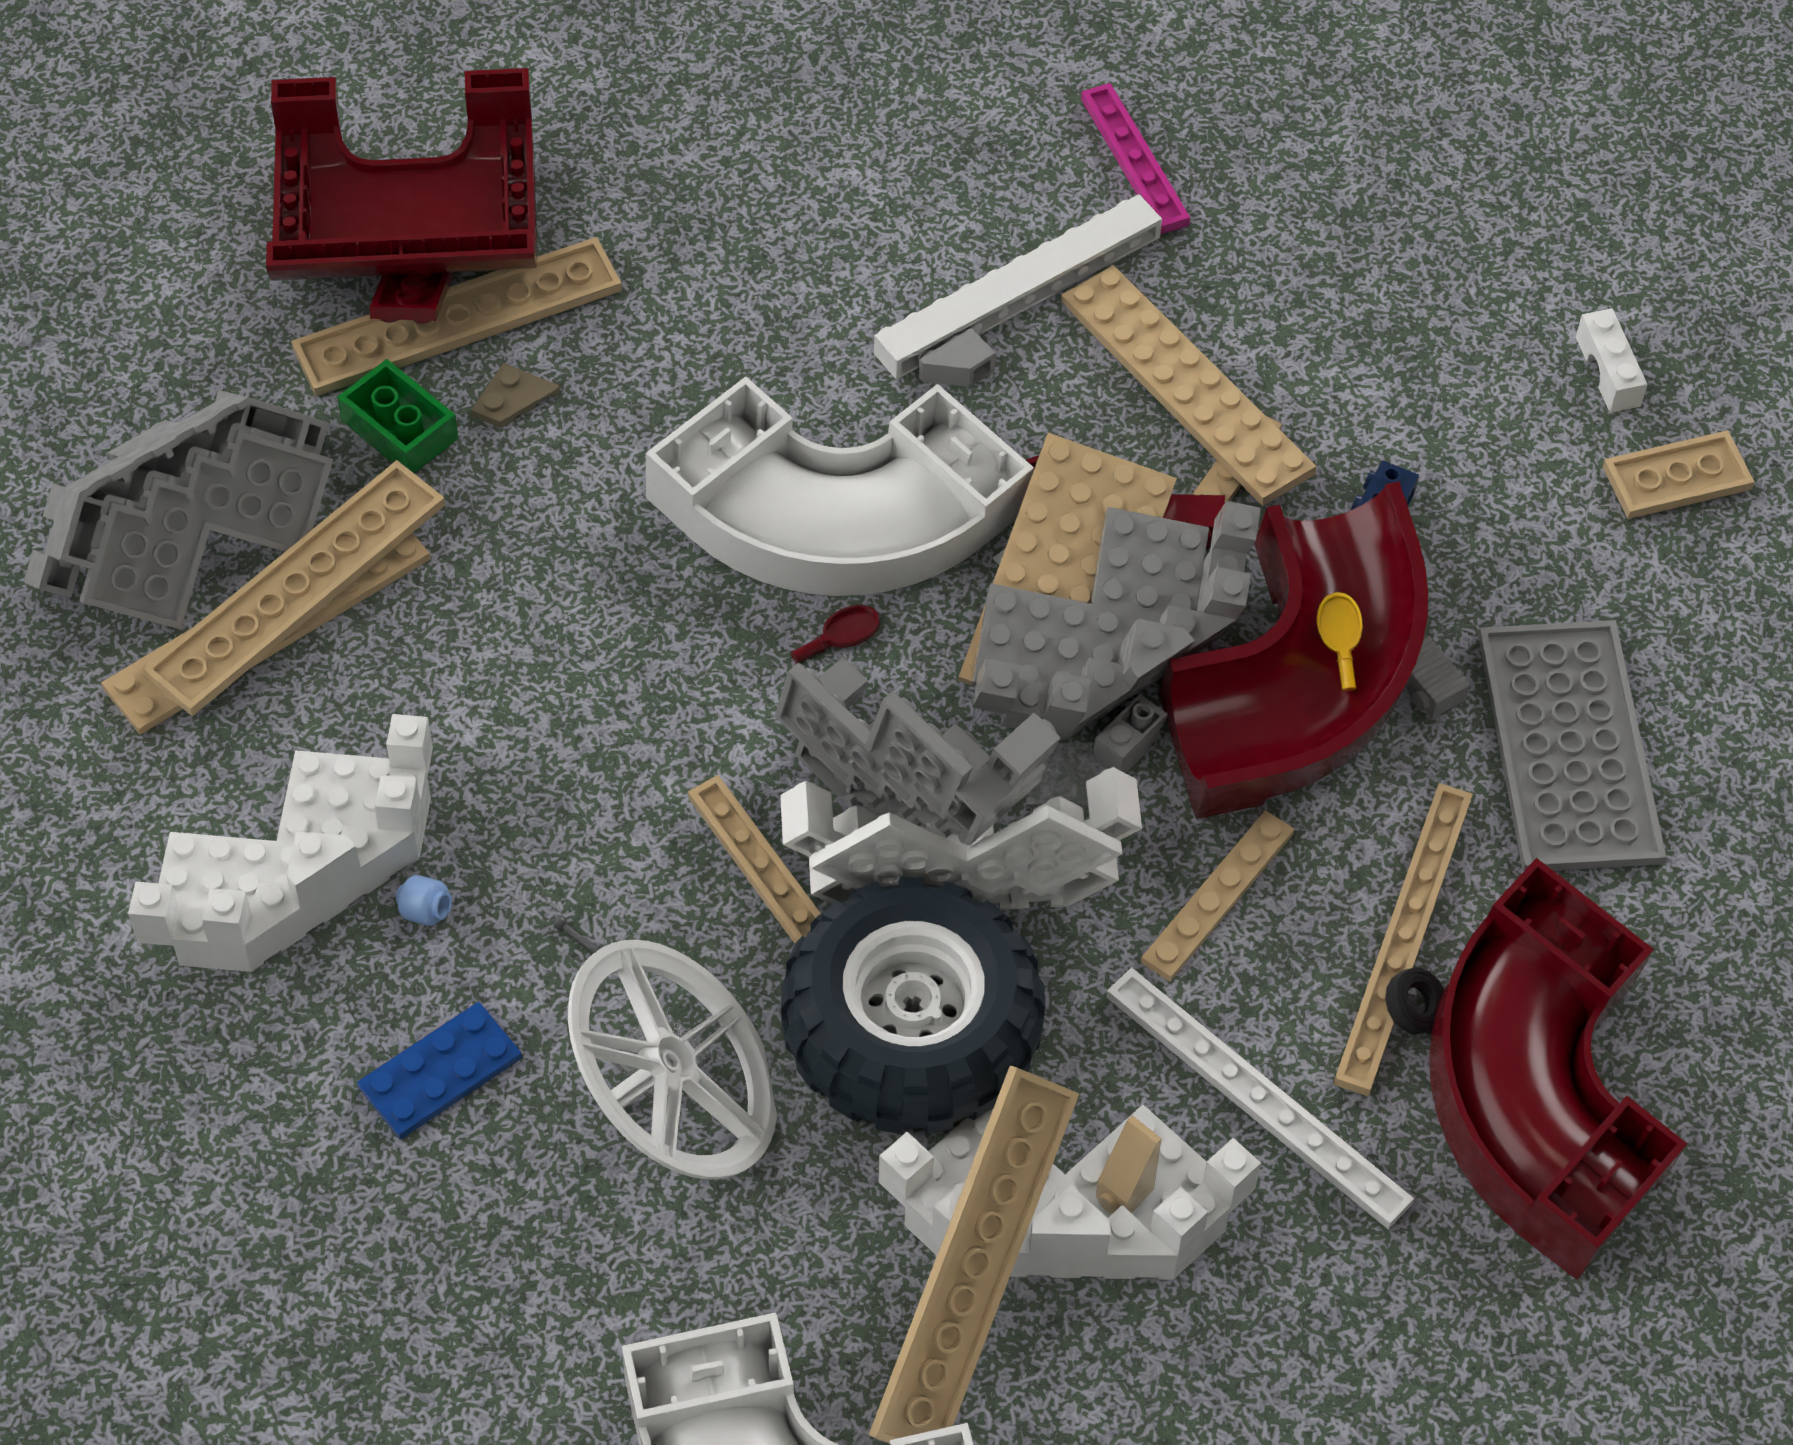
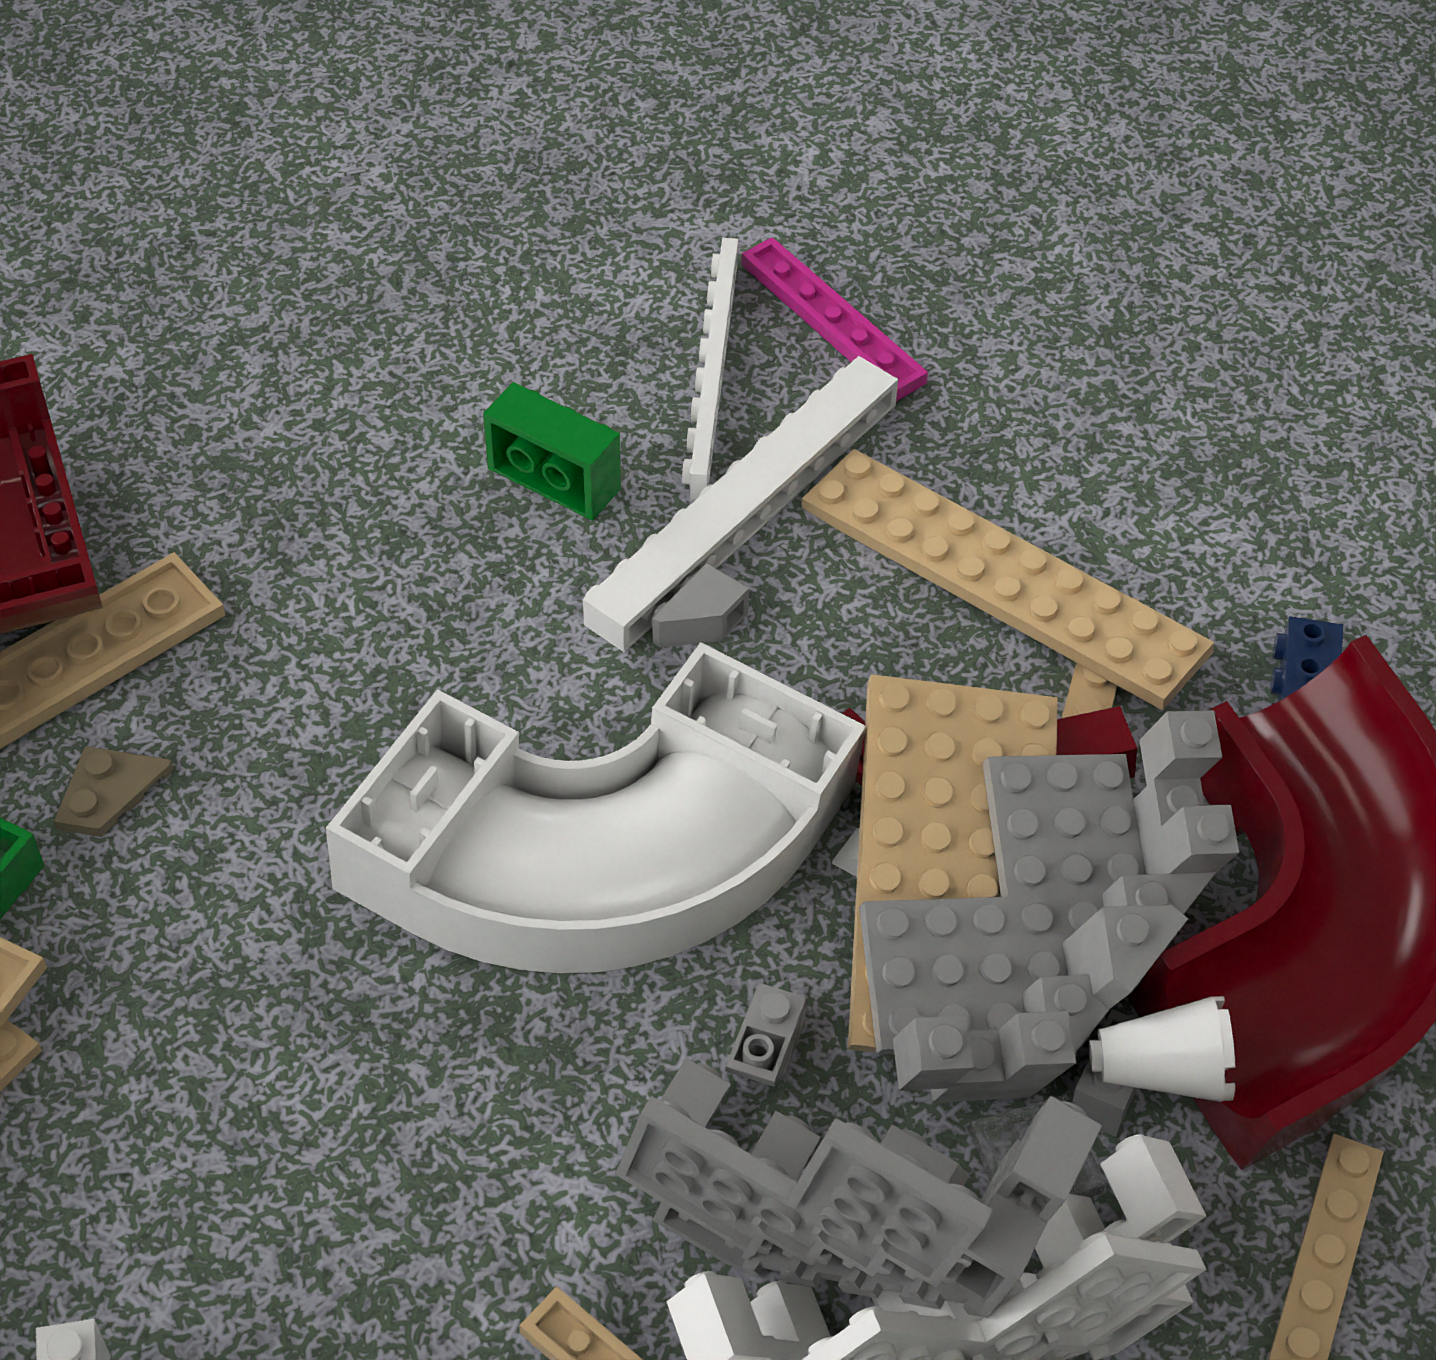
camera: 15 degrees left, 5 degrees down
(842, 630) = (662, 1014): dark red piece -> none
(886, 219) = (552, 450): none -> green brick
(906, 658) = (768, 1035): none -> light grey slope
(1032, 172) = (709, 379): none -> white plate
(1160, 725) = (1170, 1051): none -> white cone
(1341, 630) = (1358, 856): yellow piece -> none

